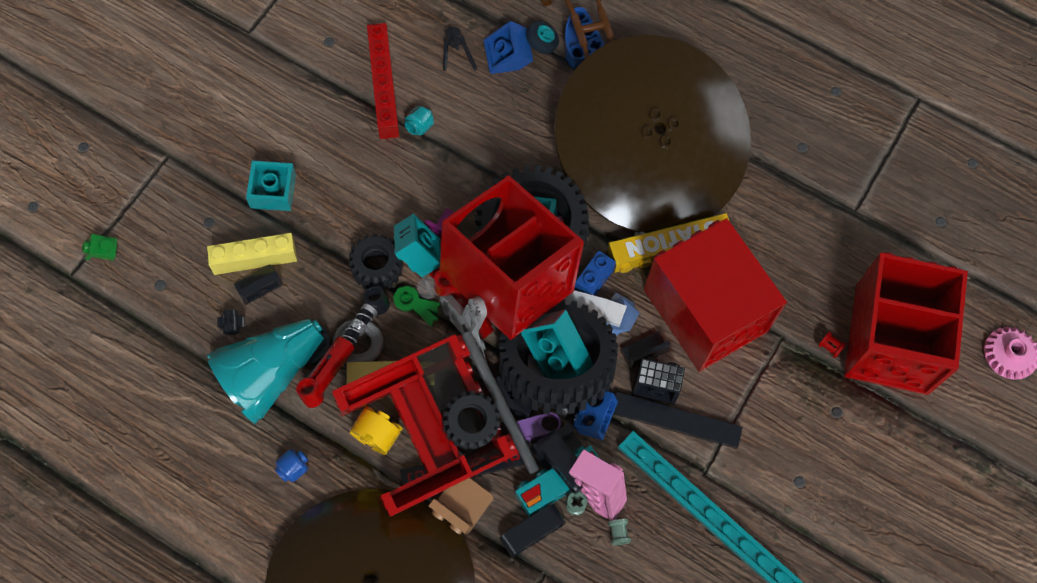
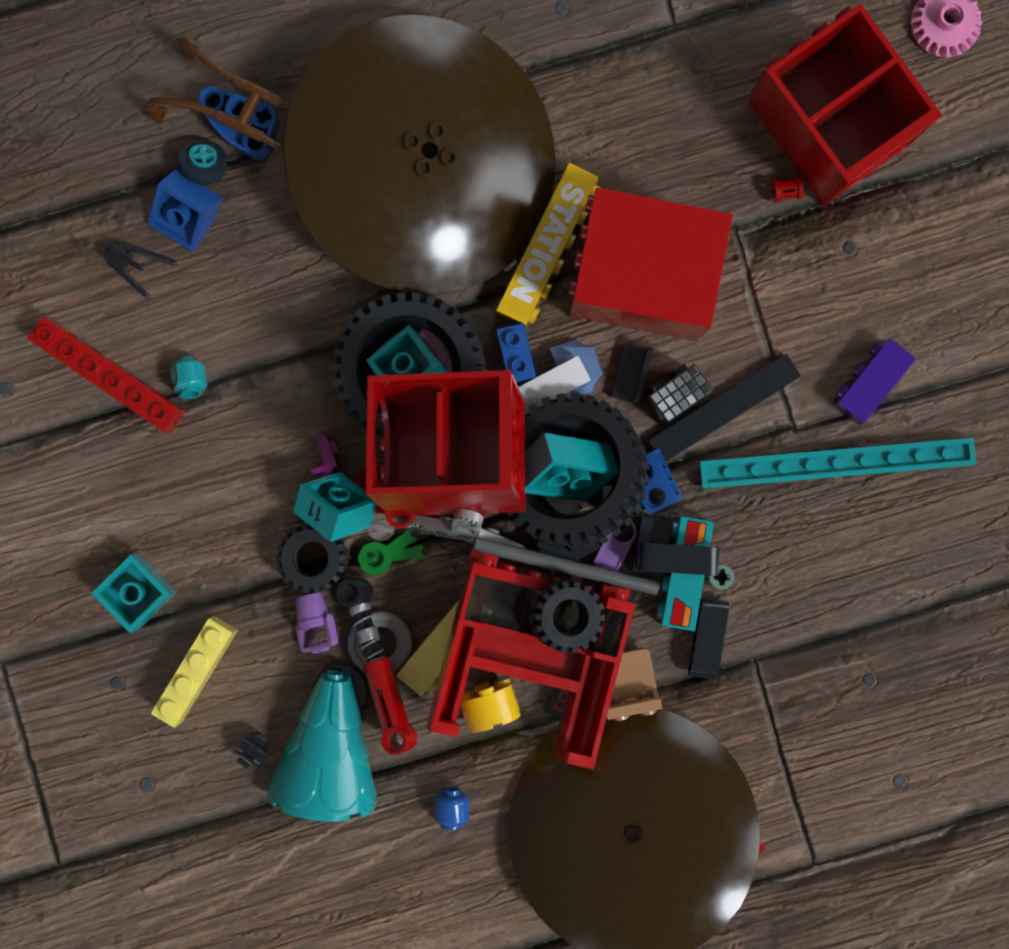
camera: 40 degrees left, 20 degrees up
(99, 247) = (54, 815): green bracket -> none
(258, 284) = (230, 689): black panel -> none
(340, 292) = (311, 615): none -> medium lavender piece
(601, 484) = (733, 552): bright pink wedge -> none
(619, 532) = (780, 560): sand green bush -> none
(777, 491) = (873, 380): none -> dark purple brick

